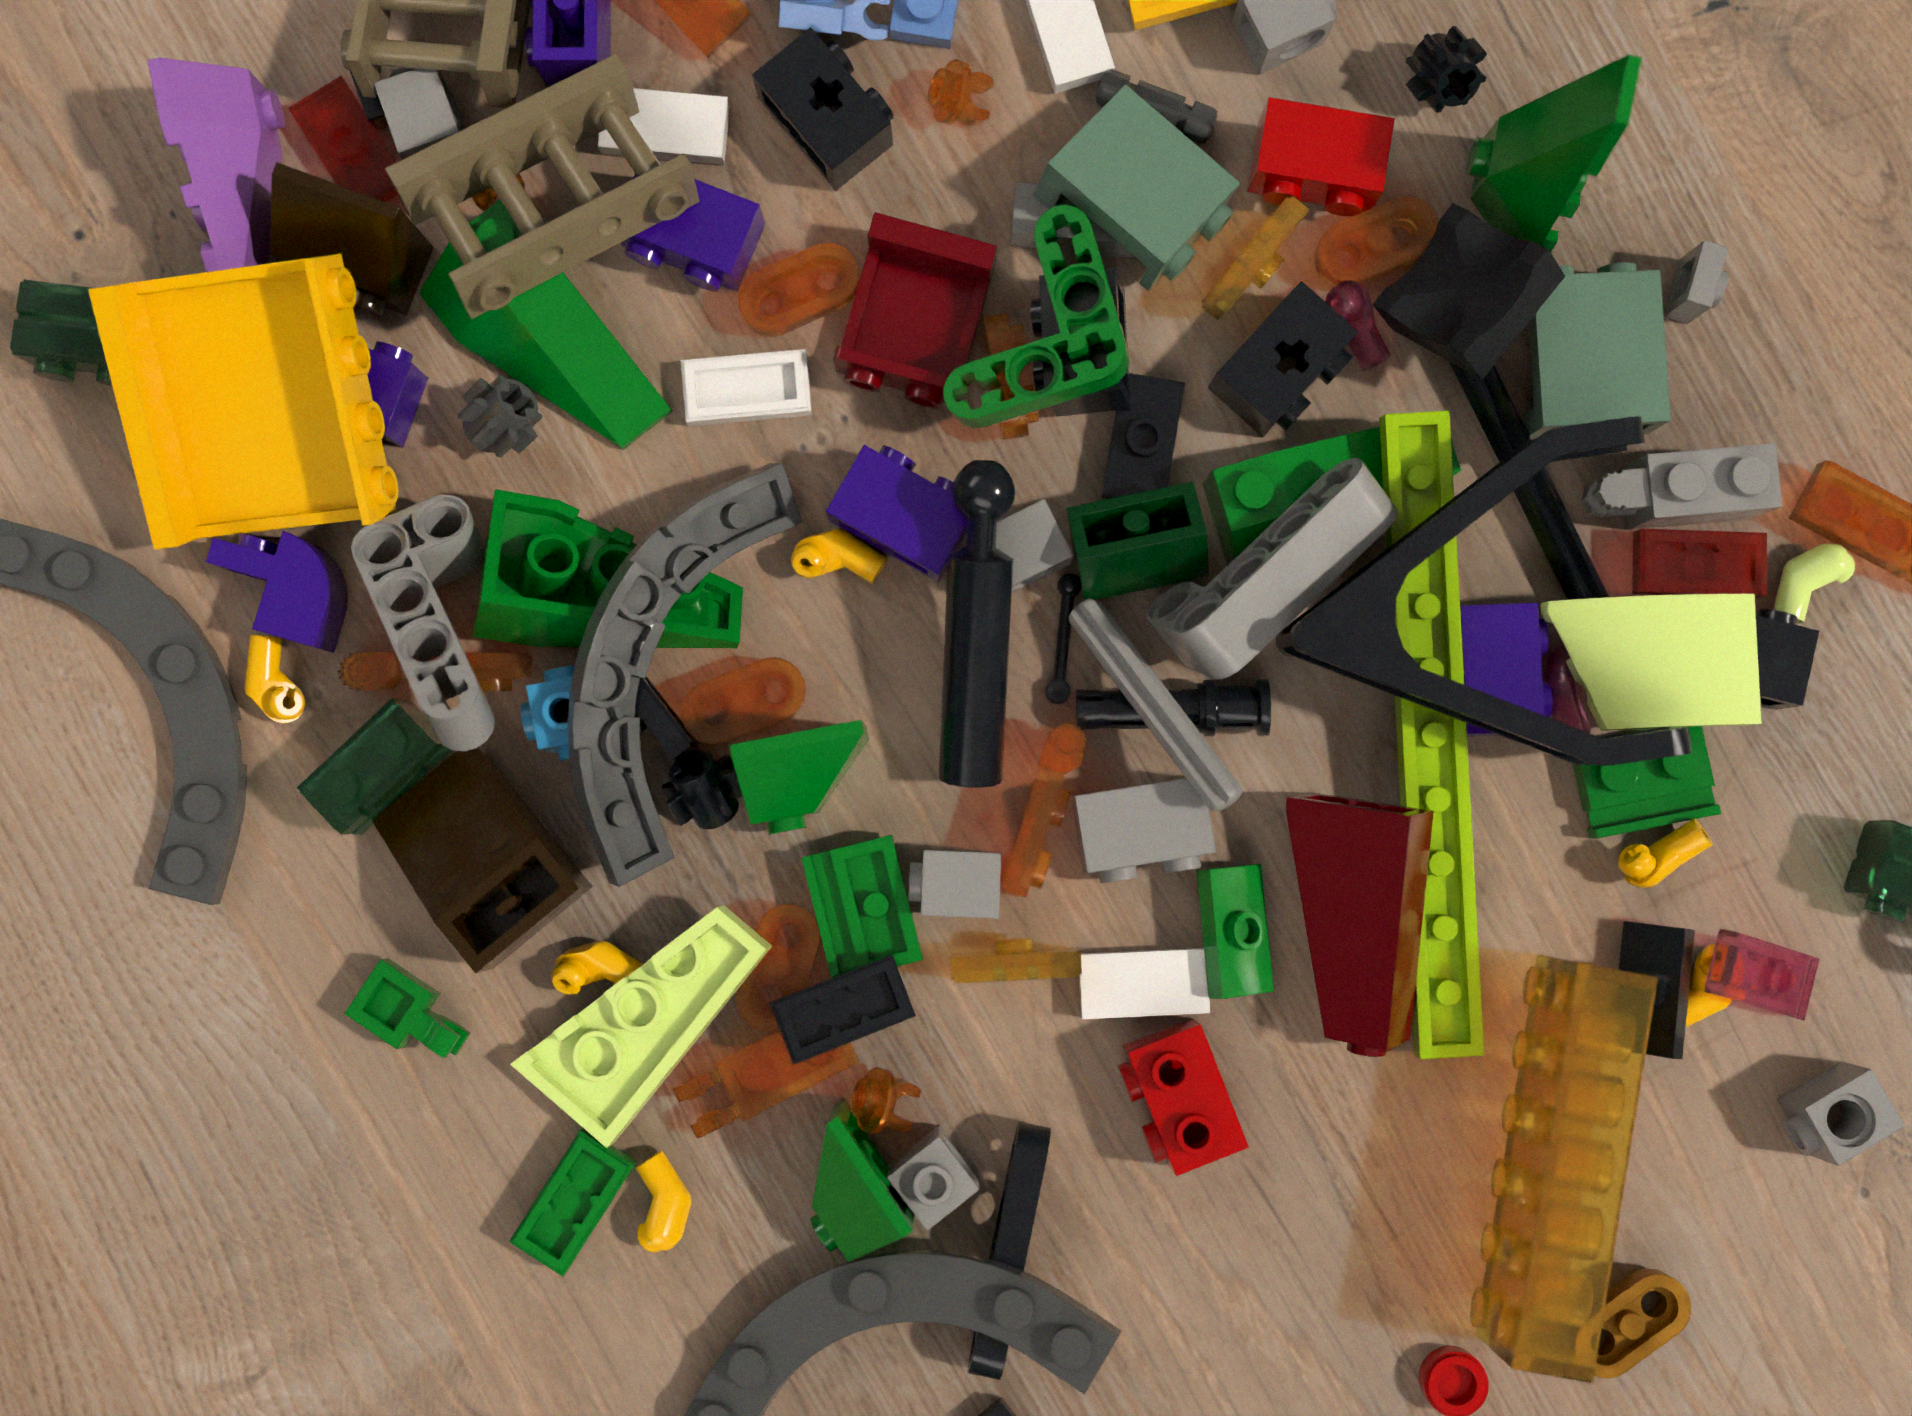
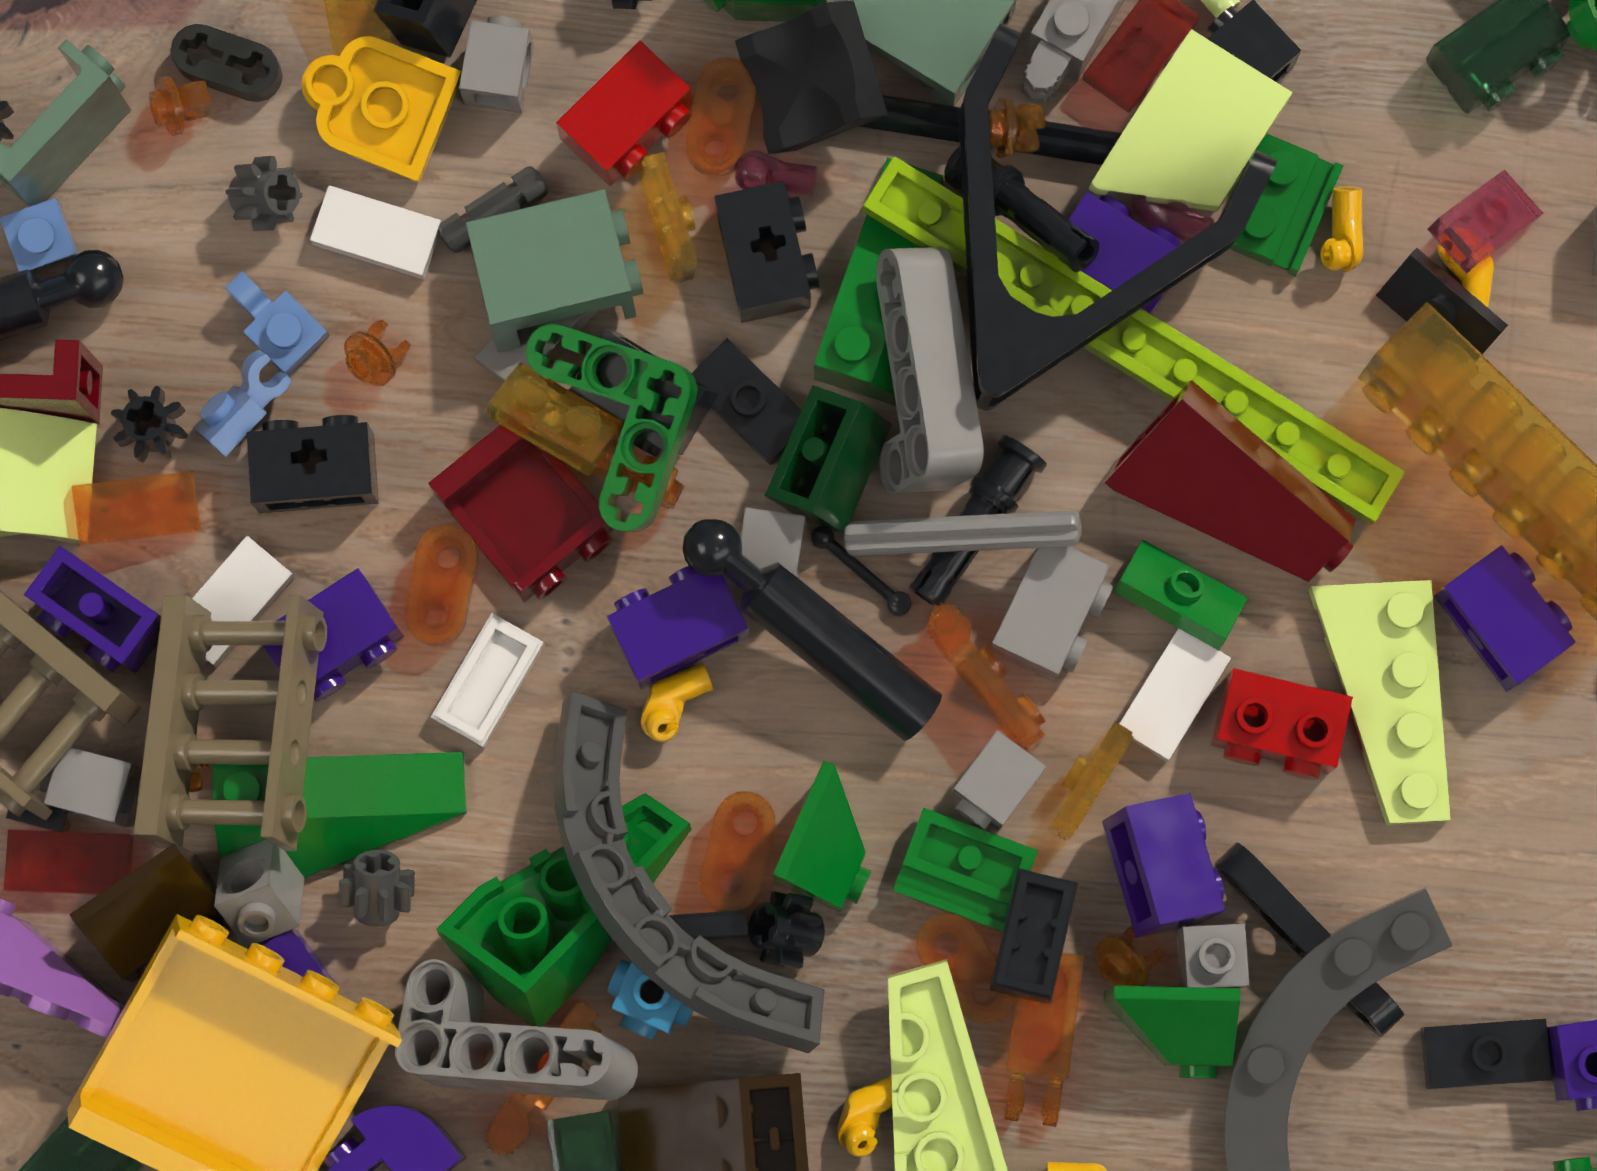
camera: 50 degrees left, 5 degrees down
(421, 319) = (259, 892): none -> light grey brick
(985, 1080) = (1164, 865): none -> dark purple brick
(1004, 278) = (554, 418): none -> clear yellow plate
(1299, 1158) = (1389, 665): none -> yellowish green wing
(1416, 1234) = (1506, 617): none -> dark purple brick
(1483, 569) = (1032, 214): none -> black pin
(1545, 495) = (1015, 127): none -> clear orange plate

